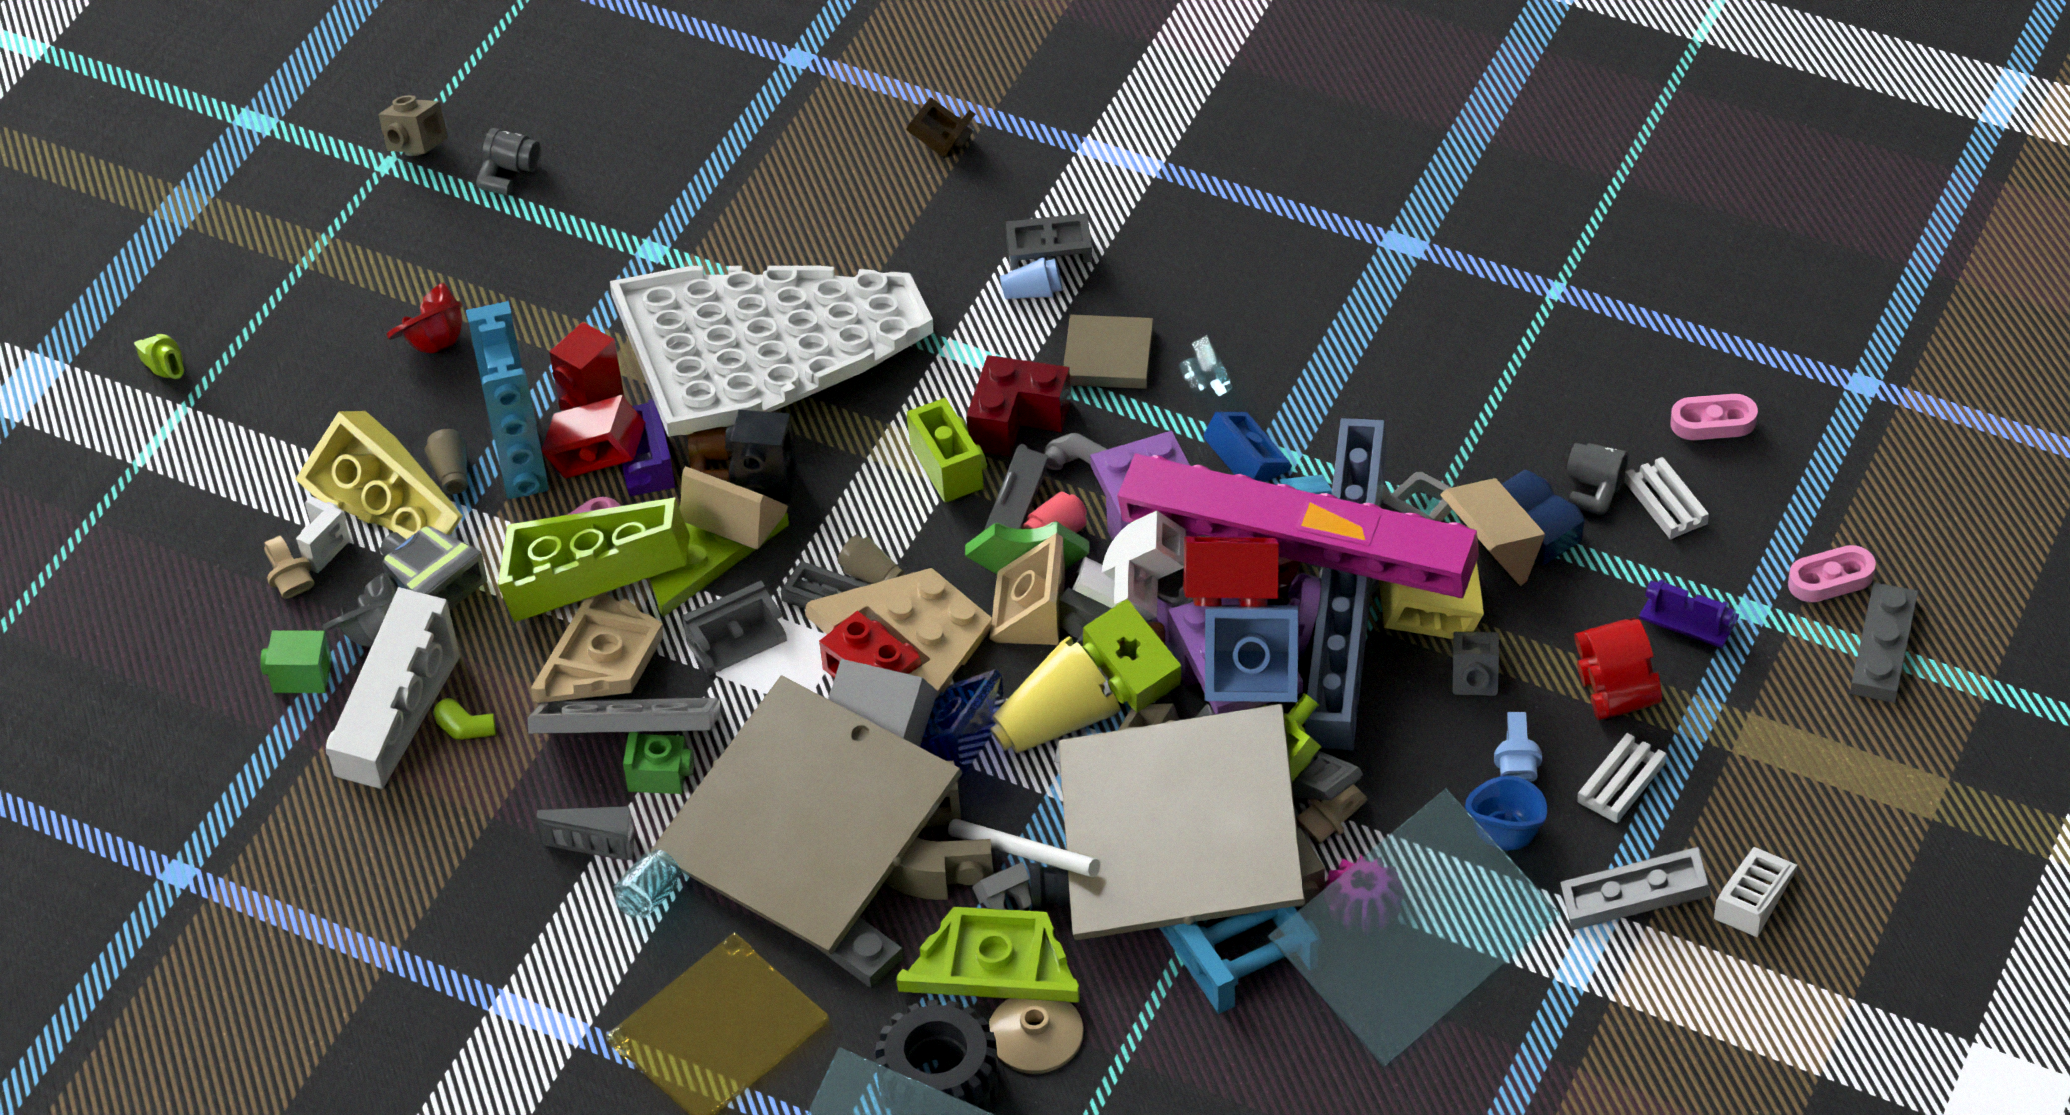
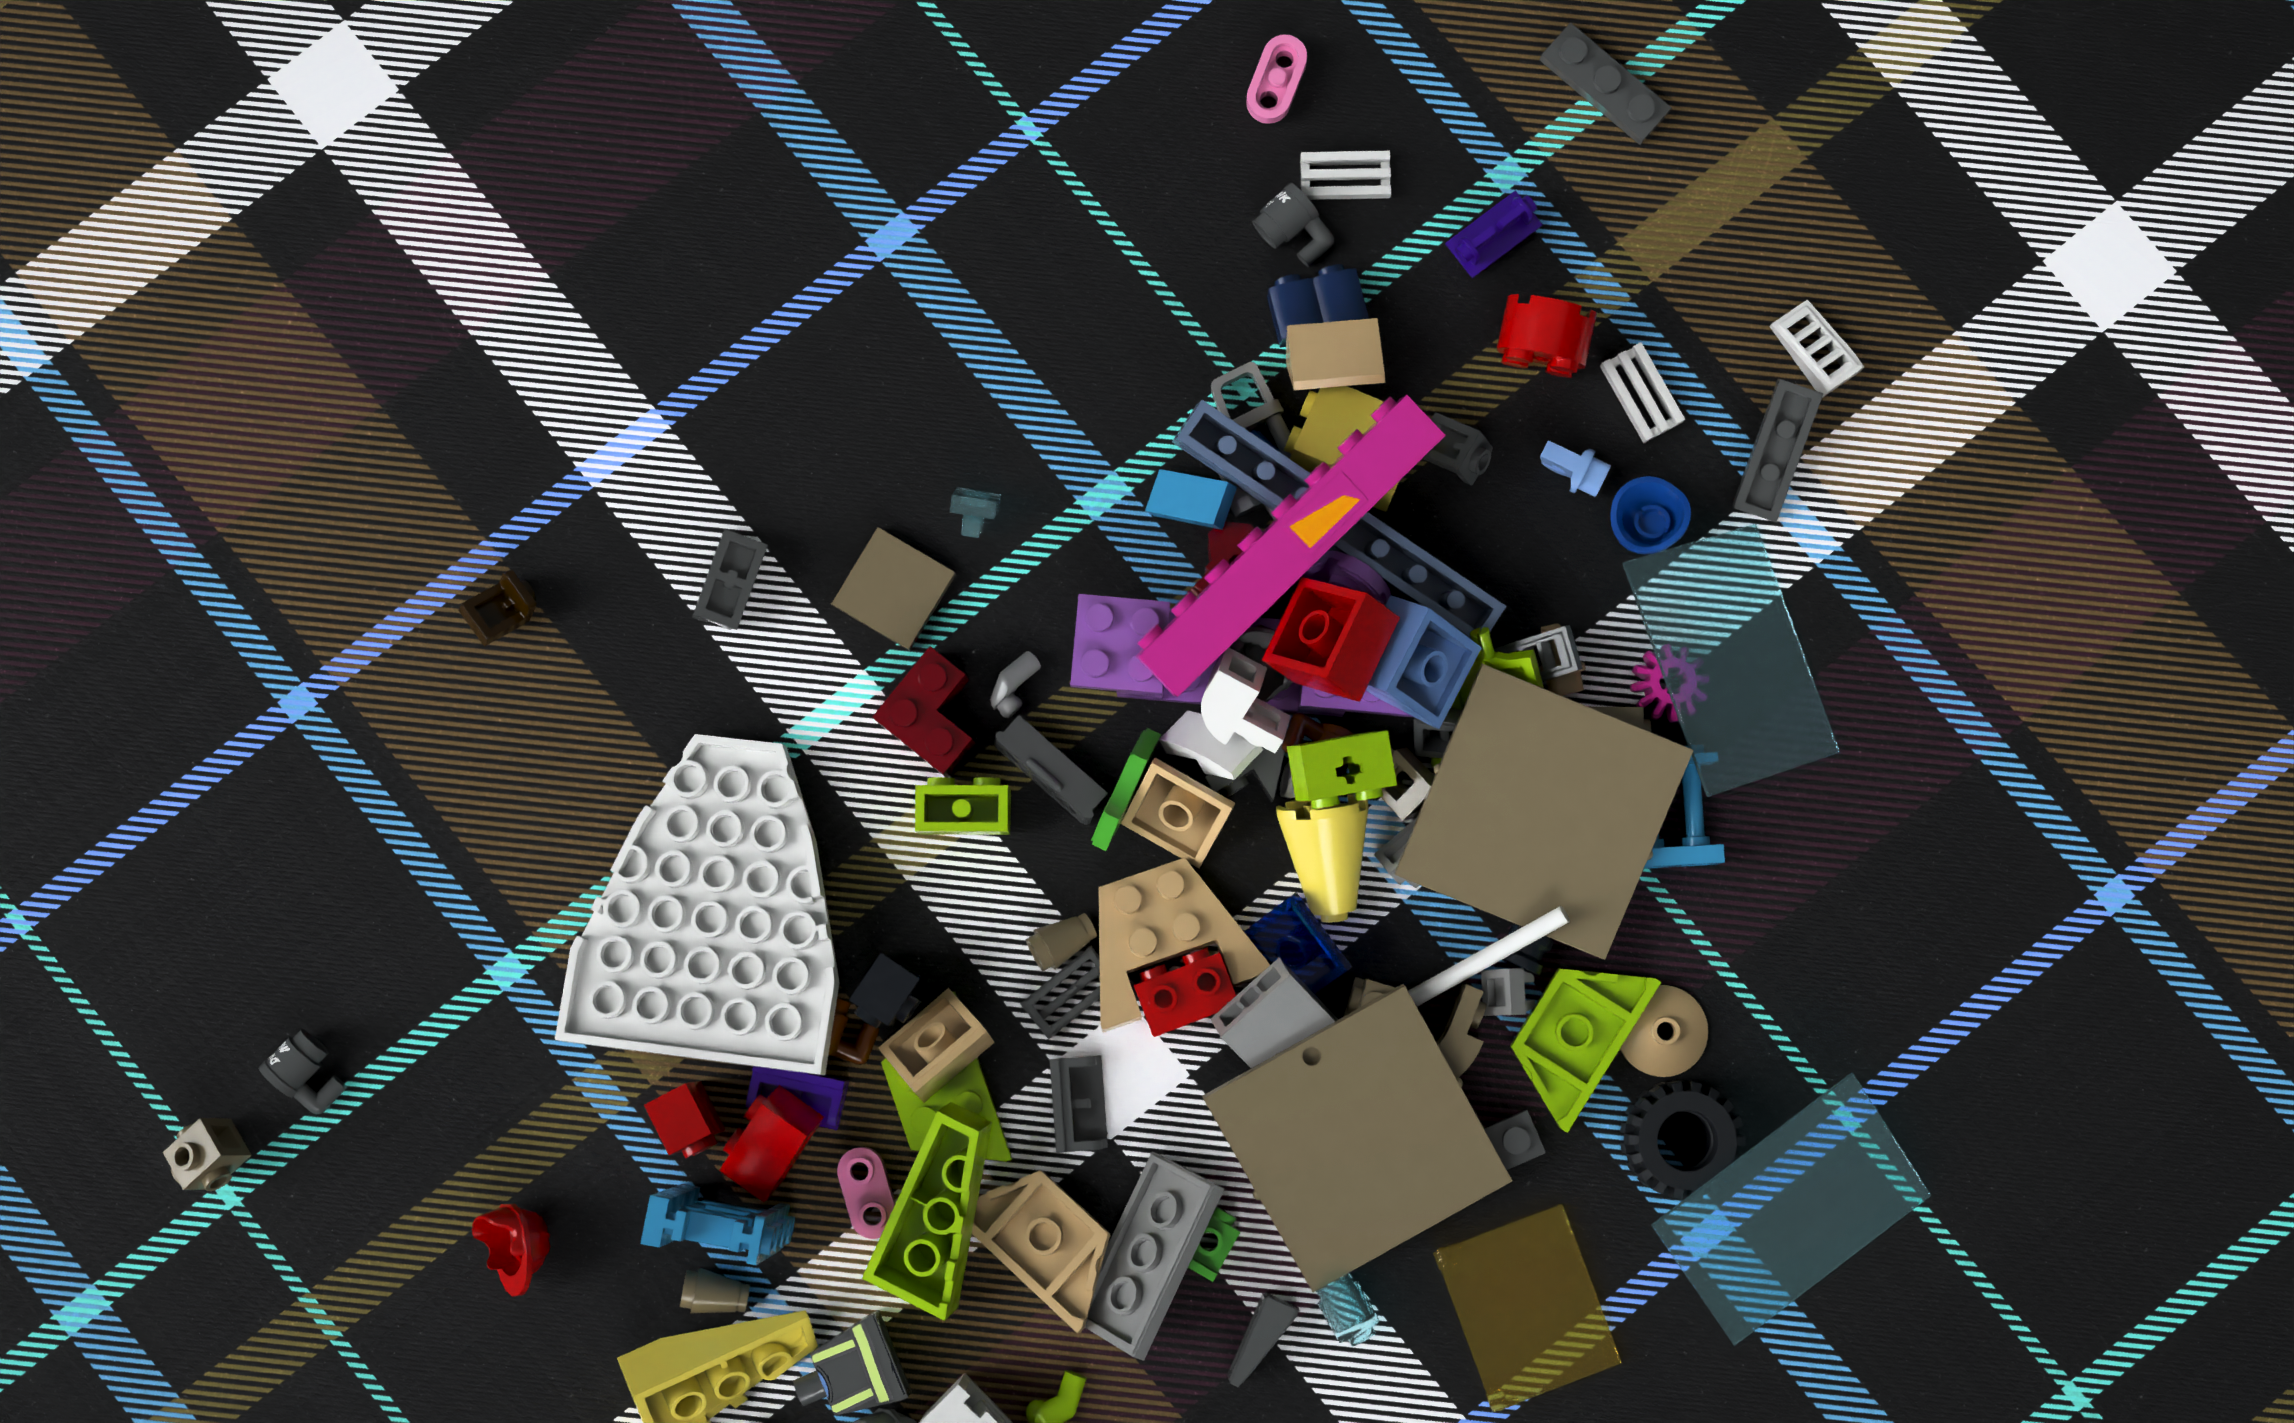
camera: 65 degrees left, 35 degrees up
(1033, 280) = (765, 618): light blue cone -> none
(1060, 508) = (1098, 745): coral brick -> none
(1245, 446) = (1086, 520): blue slope -> none
(1827, 574) = (1513, 86): bright pink plate -> none

